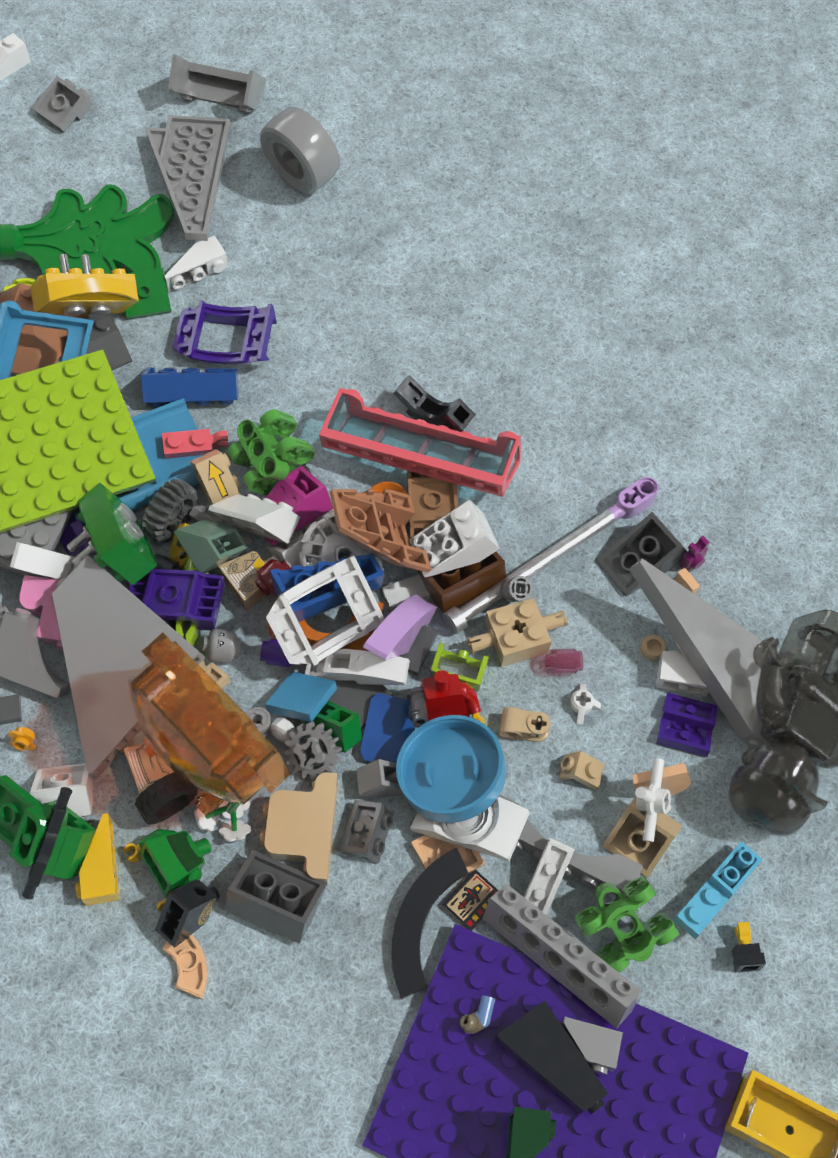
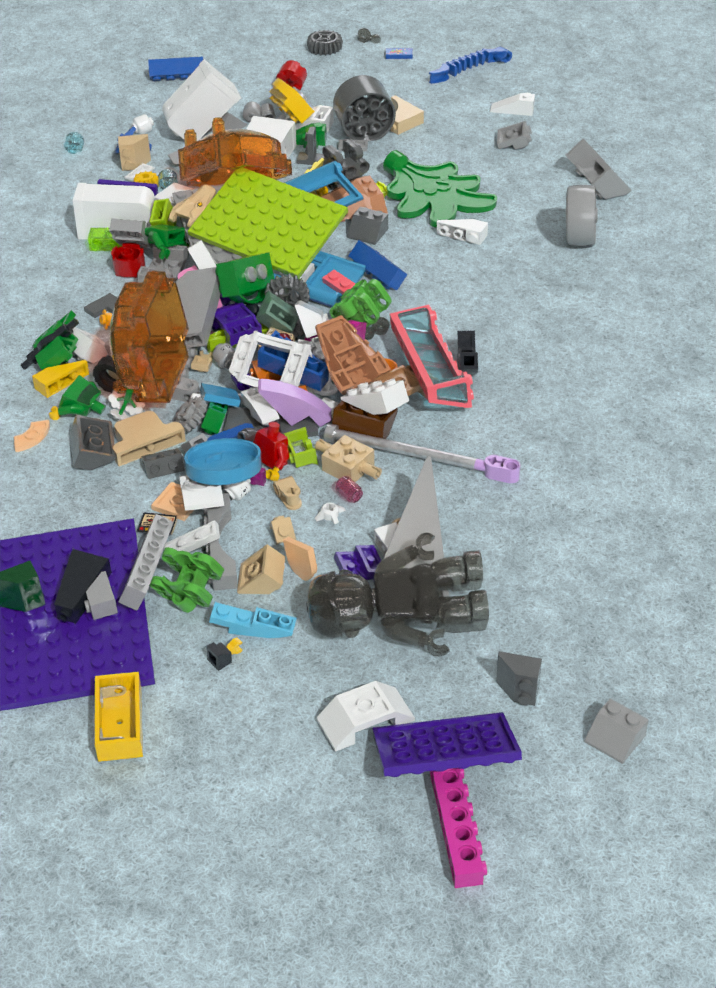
camera: 60 degrees right, 20 degrees down
(84, 293) = (384, 193): yellow piece -> none
(151, 294) = (421, 223): green plate -> none
(186, 911) = (55, 412): black torso -> none
(191, 165) = (524, 194): light grey wing -> none
(215, 476) = (325, 296): tan brick -> none
(256, 339) = (447, 266): dark purple wedge -> none
(413, 916) = (125, 502): black tile -> none
(480, 1019) = (88, 548): arm -> none
(511, 591) = (376, 442): light grey wheel -> none
(648, 541) = (466, 489): dark grey slope -> none
(653, 800) = (283, 545): white bar -> none
(685, 579) = (461, 518): light nougat tile -> none
(695, 555) = (484, 509): magenta plate -> none

